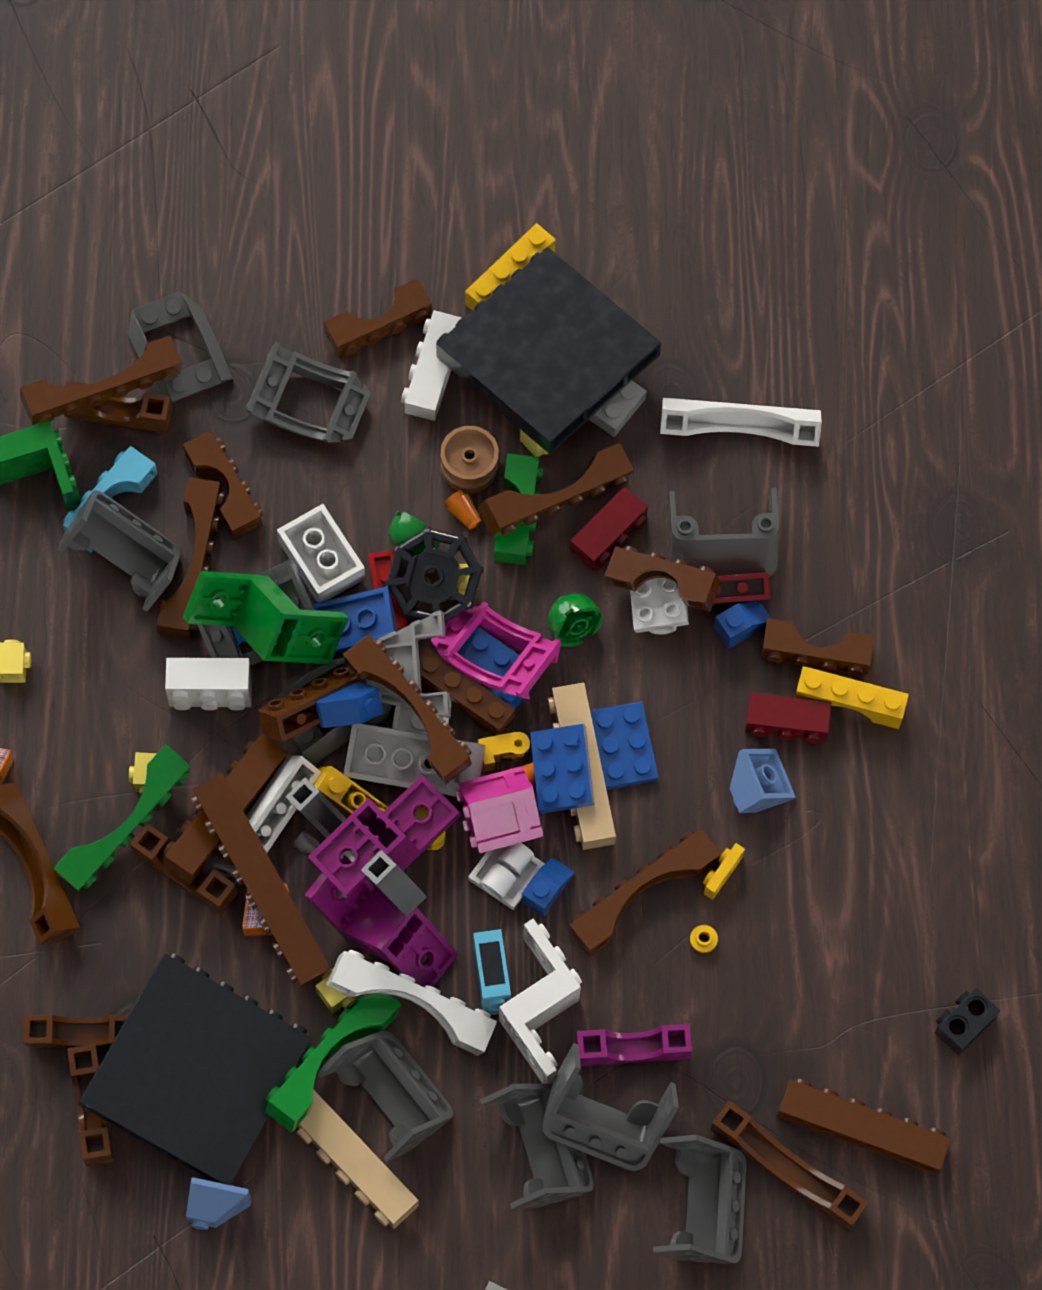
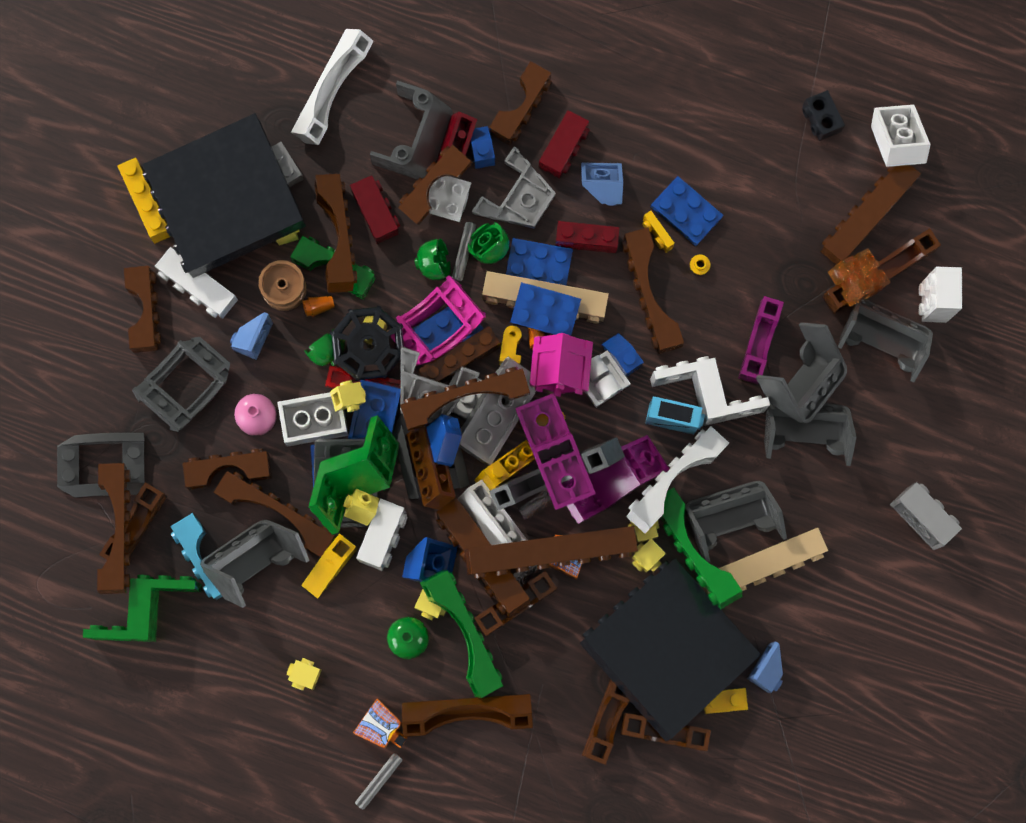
camera: 70 degrees left, 10 degrees up
(98, 763) = (407, 638): none -> green cylinder
(152, 639) = (329, 565): none -> yellow slope
(158, 1172) = (728, 701): none -> yellow plate
(202, 749) = (428, 559): none -> blue slope
(230, 640) = (361, 507): none -> light yellow brick
(302, 490) = (255, 414): none -> bright pink cylinder
(303, 1007) = (648, 556): none -> light yellow brick
(359, 578) = (348, 396): none -> light yellow brick
(394, 451) = (252, 336): none -> medium blue slope
(601, 651) = (463, 253): none -> light grey axle
(620, 674) = (489, 243): none -> green cylinder
(679, 787) = (587, 237): none -> dark red brick
(698, 699) = (526, 199): none -> light grey wing
(761, 1131) = (859, 277): none -> clear orange brick
(767, 898) = (686, 211): none -> blue plate
(784, 1246) = (941, 294): none -> white brick
(876, 702) = (572, 87): yellow arch -> none
(977, 1122) = (900, 135): none -> white brick

